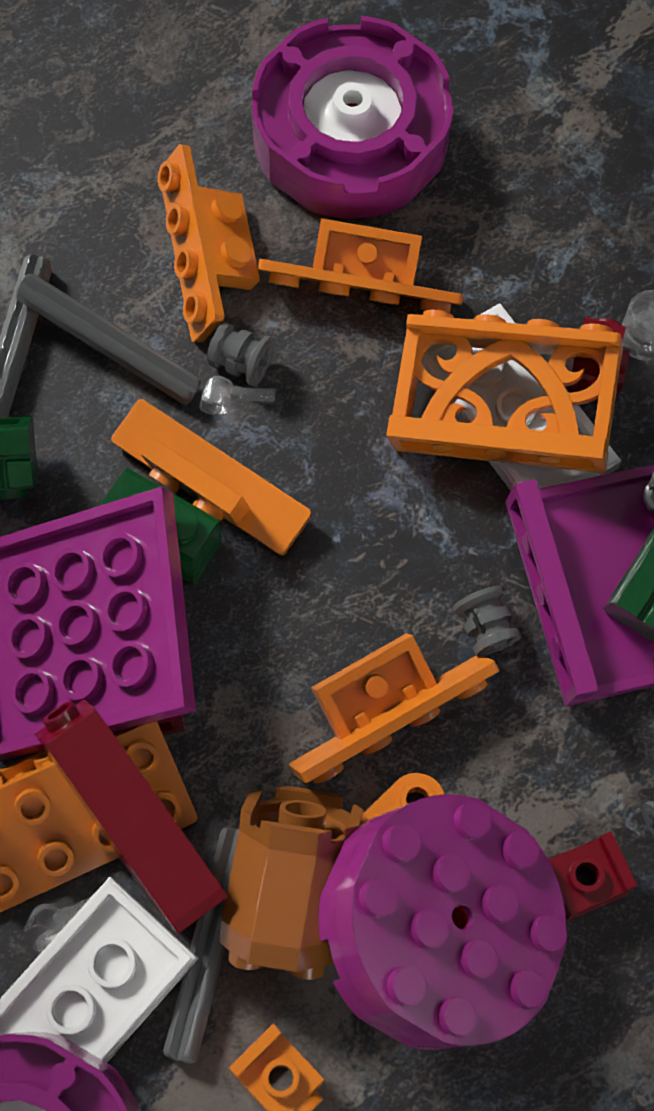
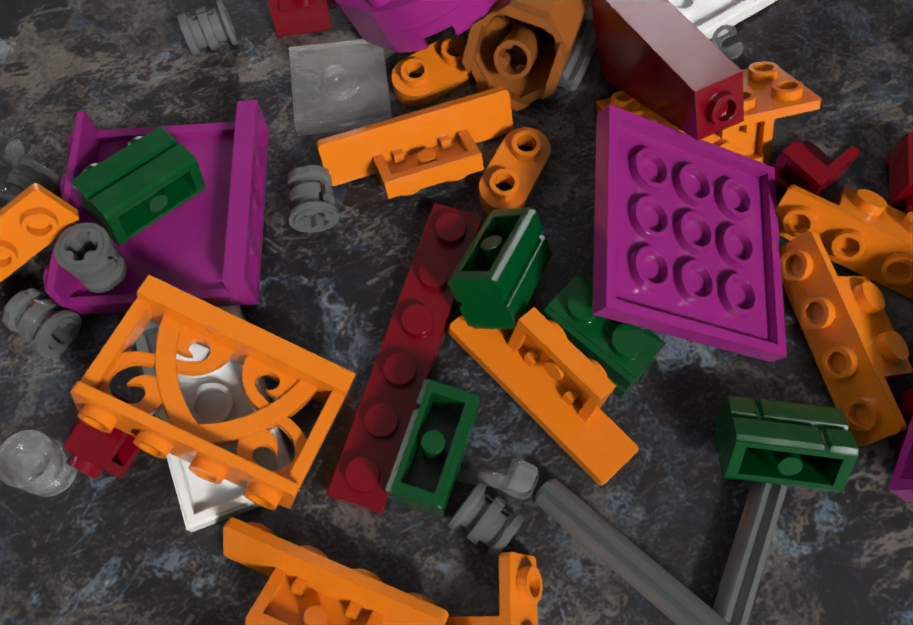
camera: 165 degrees left, 0 degrees up
(269, 560) = (501, 269): none -> dark green brick
(277, 705) = (514, 167): none -> orange plate
(298, 389) = (433, 448): none -> dark green brick
(344, 499) = (403, 361): none -> dark red plate
(509, 770) = (338, 86): none -> clear tile

